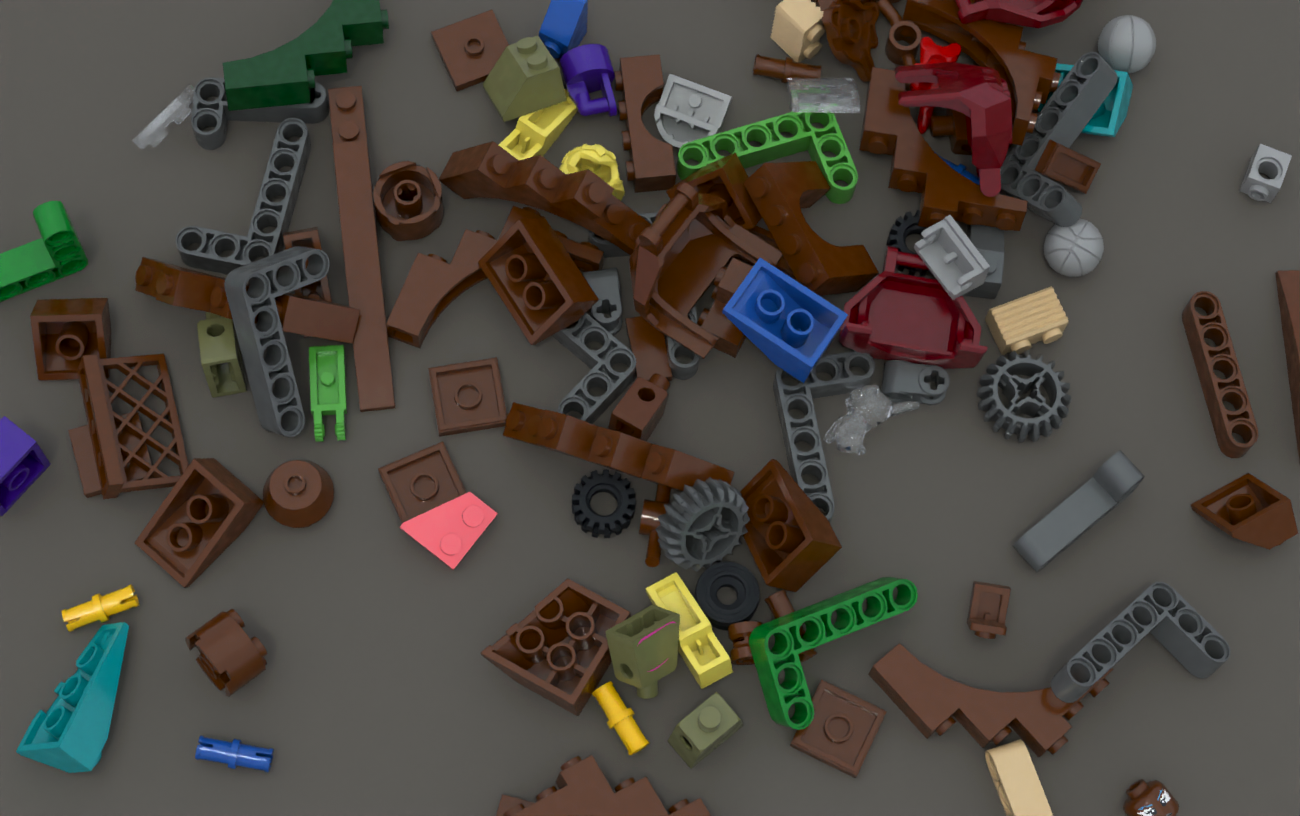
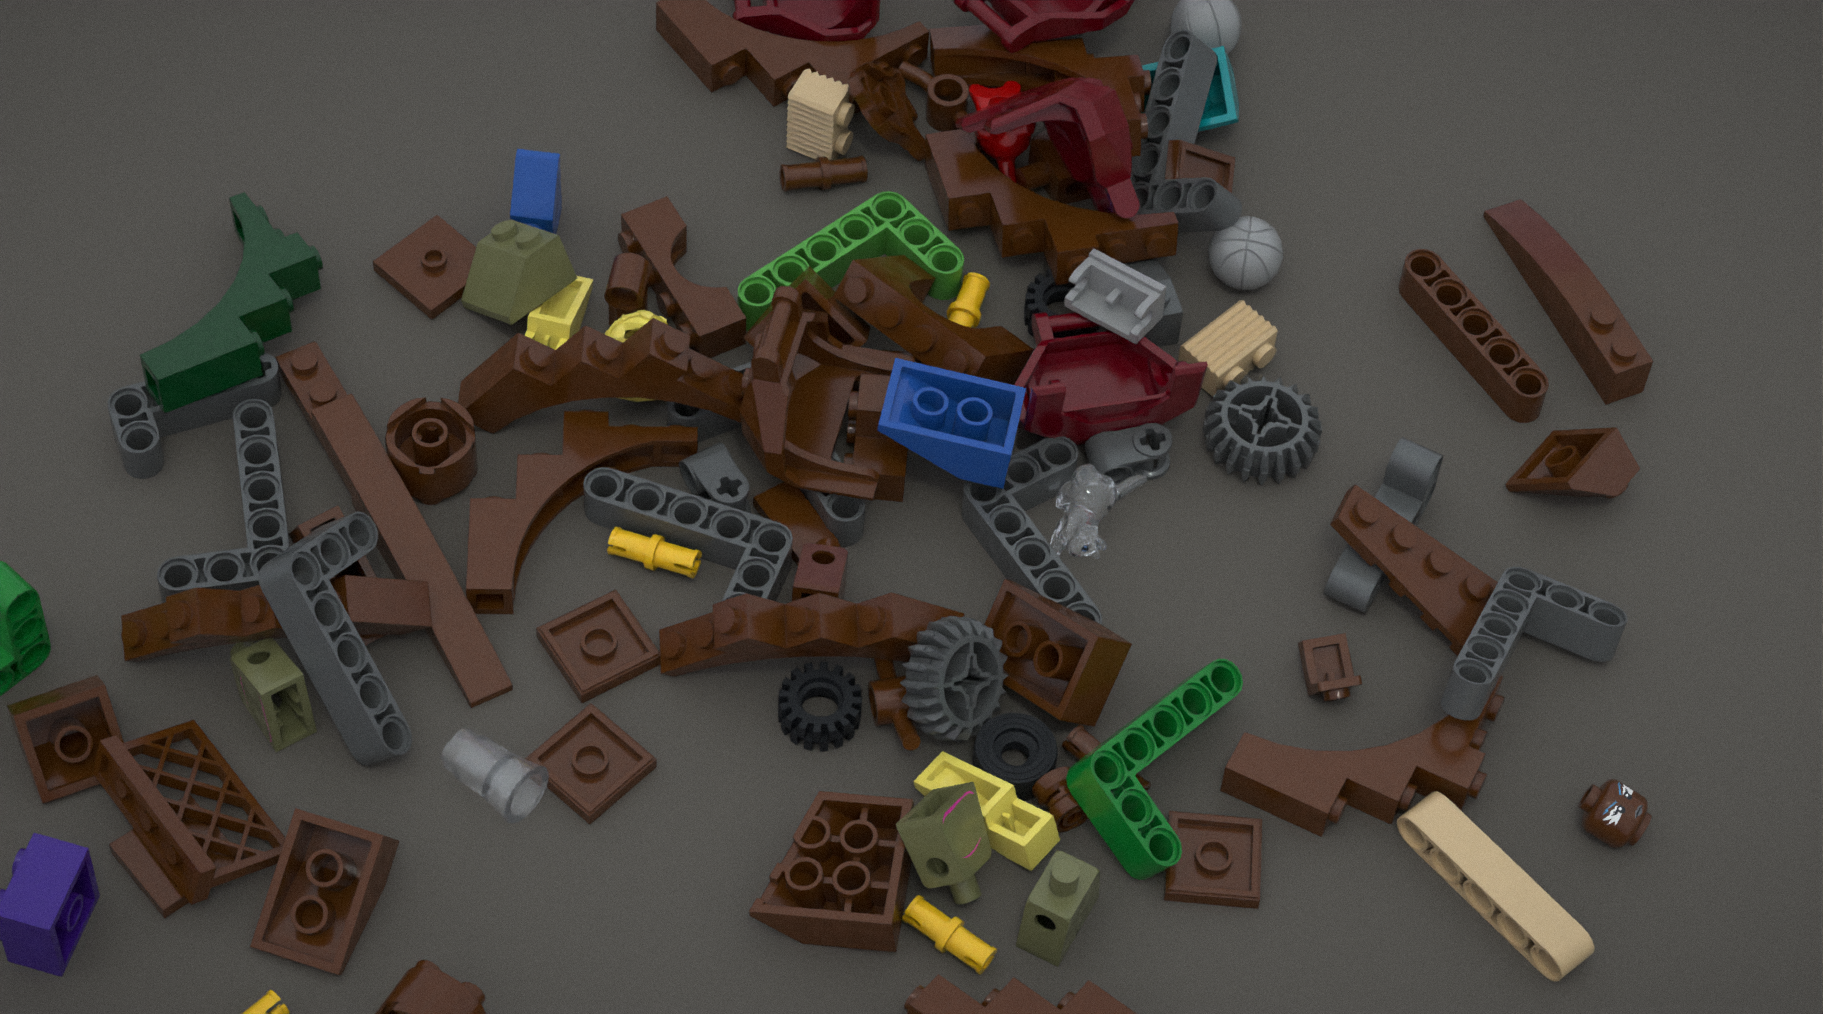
camera: 20 degrees left, 15 degrees down
(175, 111) = (94, 437): clear wing -> none
(298, 493) = (436, 817): reddish brown cone -> none
(328, 388) = (420, 689): bright green hinge -> none
(351, 475) = (496, 774): none -> clear plant
(451, 527) = (645, 793): coral wing -> none
(537, 279) = (633, 476): reddish brown slope -> none
(548, 348) = (654, 552): none -> yellow pin
(588, 71) = (590, 243): dark purple piece -> none
(597, 122) = (627, 285): none -> reddish brown piece
(689, 111) = (727, 248): light grey slope -> none
(823, 95) = (883, 179): clear slope -> none
(843, 222) = (969, 300): none -> yellow pin
(1097, 566) = (1417, 565): none -> reddish brown wing
(1274, 165) = (1424, 112): light grey brick -> none

